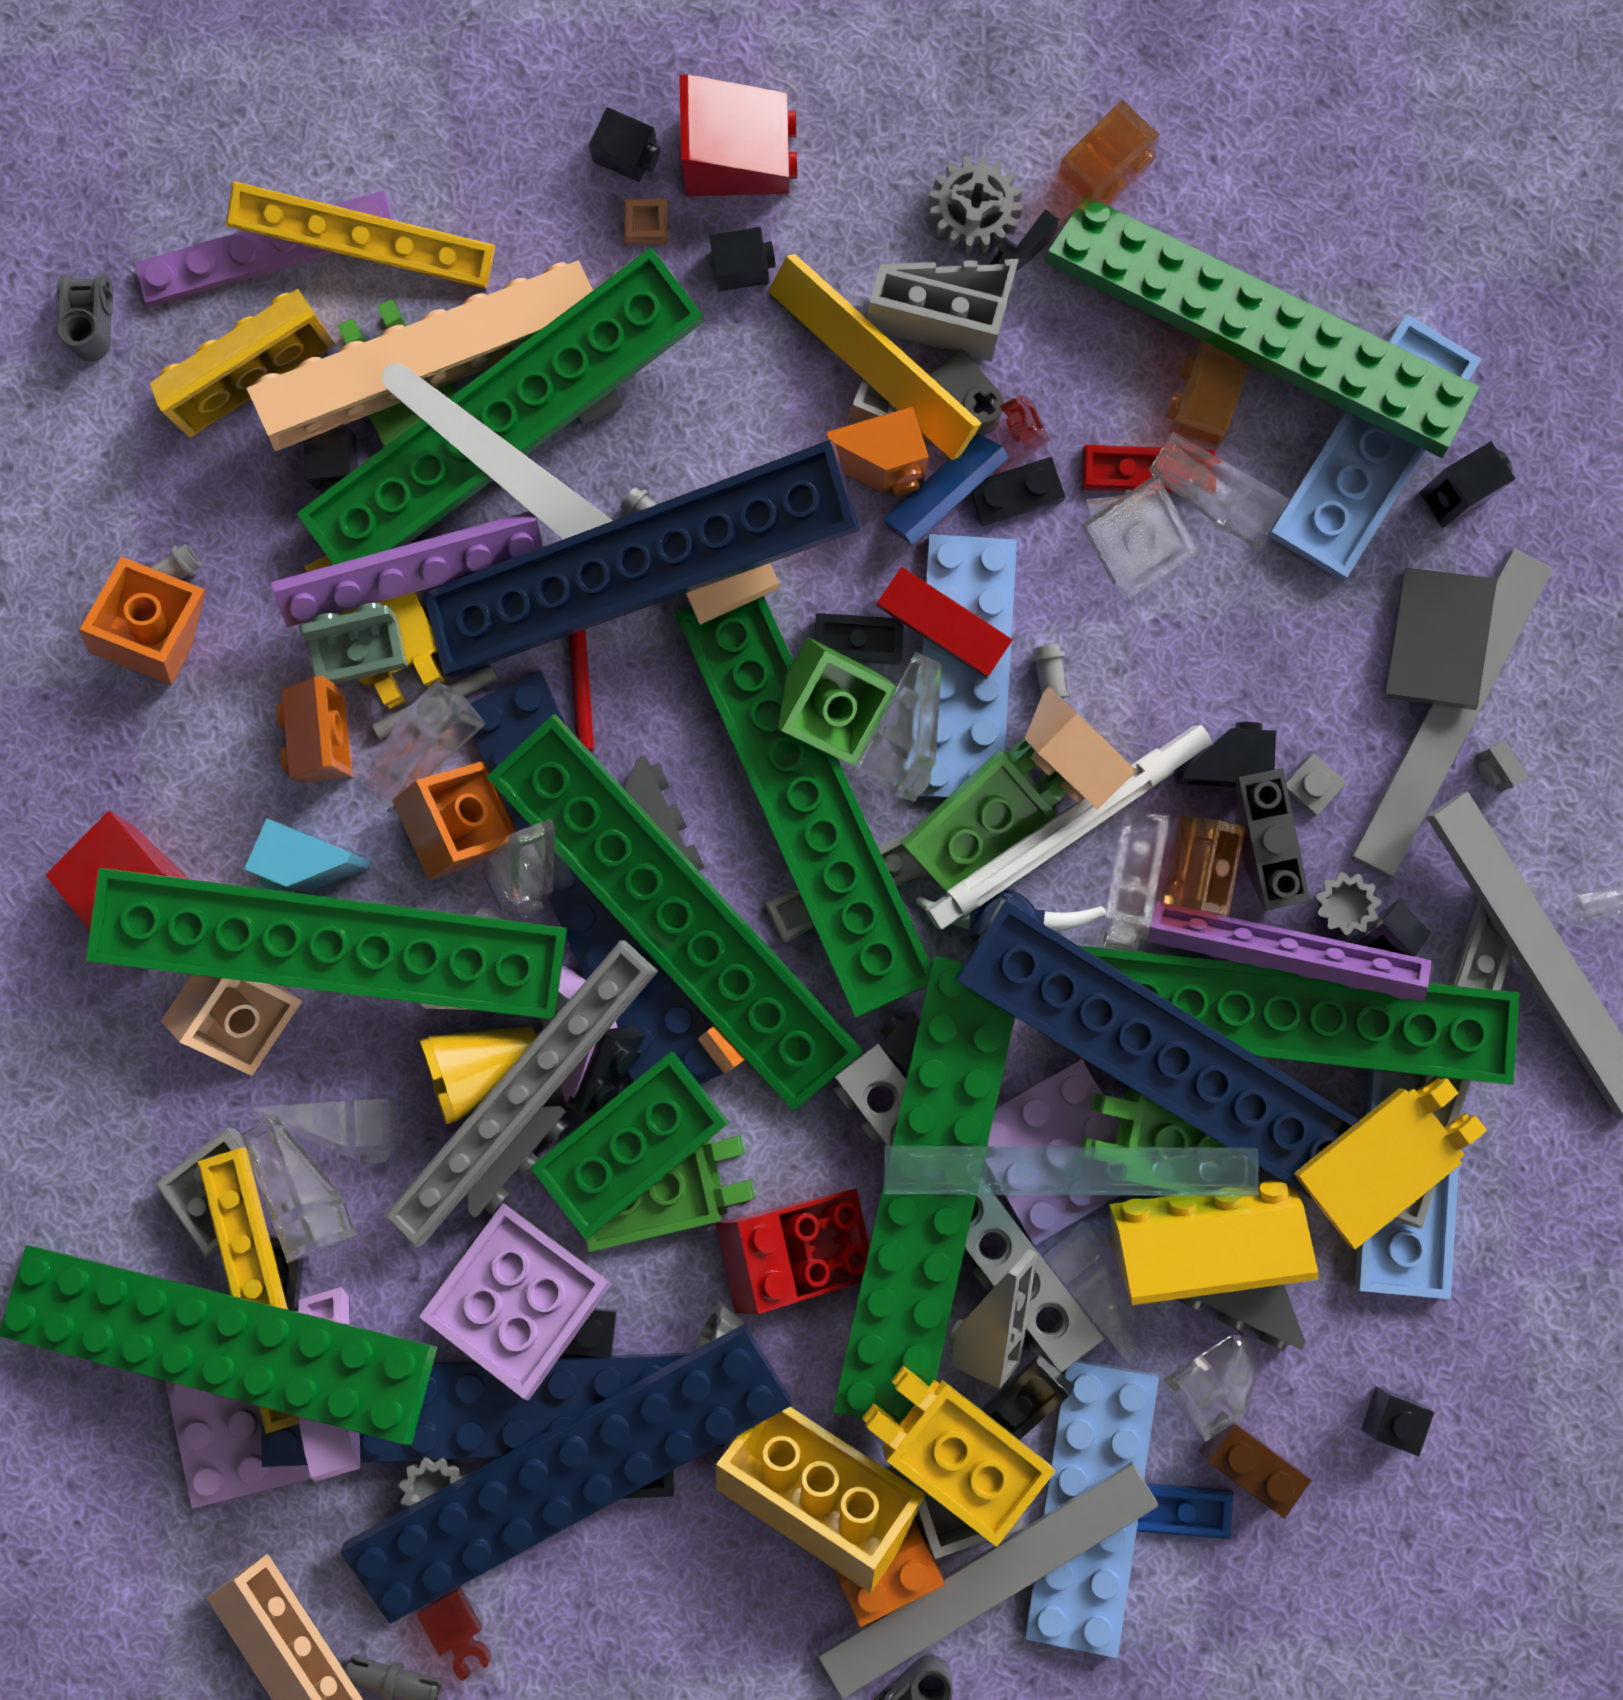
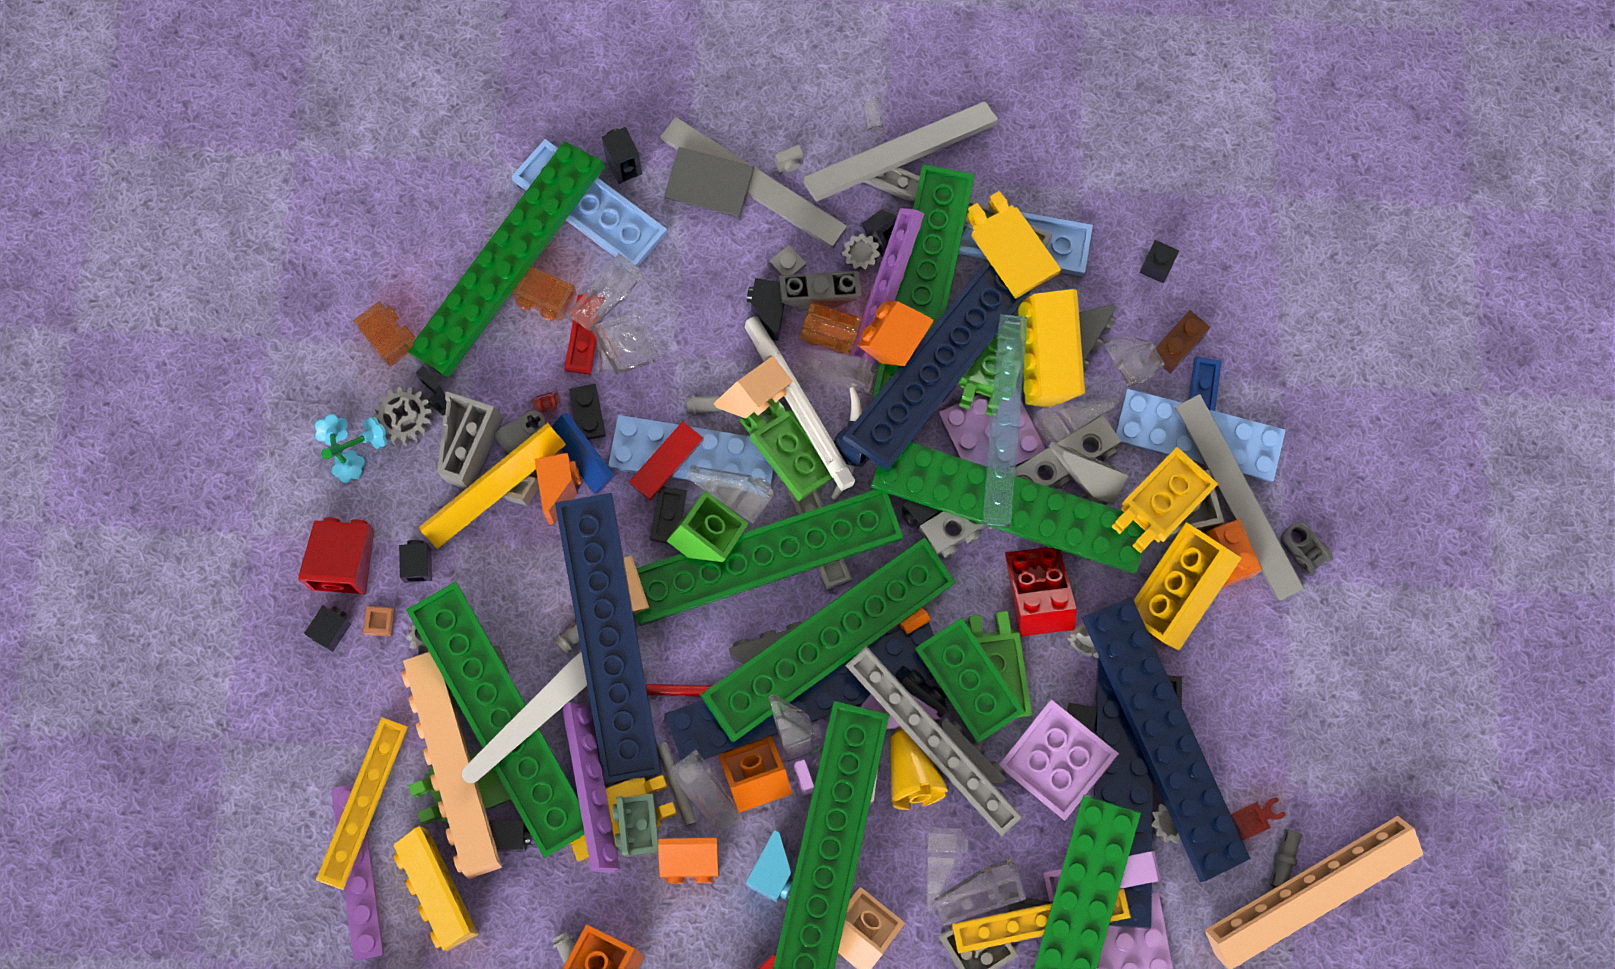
camera: 90 degrees left, 10 degrees down
(448, 894) = (803, 777): none -> lavender tile
(889, 137) = (347, 465): none -> medium azure plant
(1028, 1397) = (1133, 460): black plate -> none
(1200, 971) = (894, 333): none -> orange slope

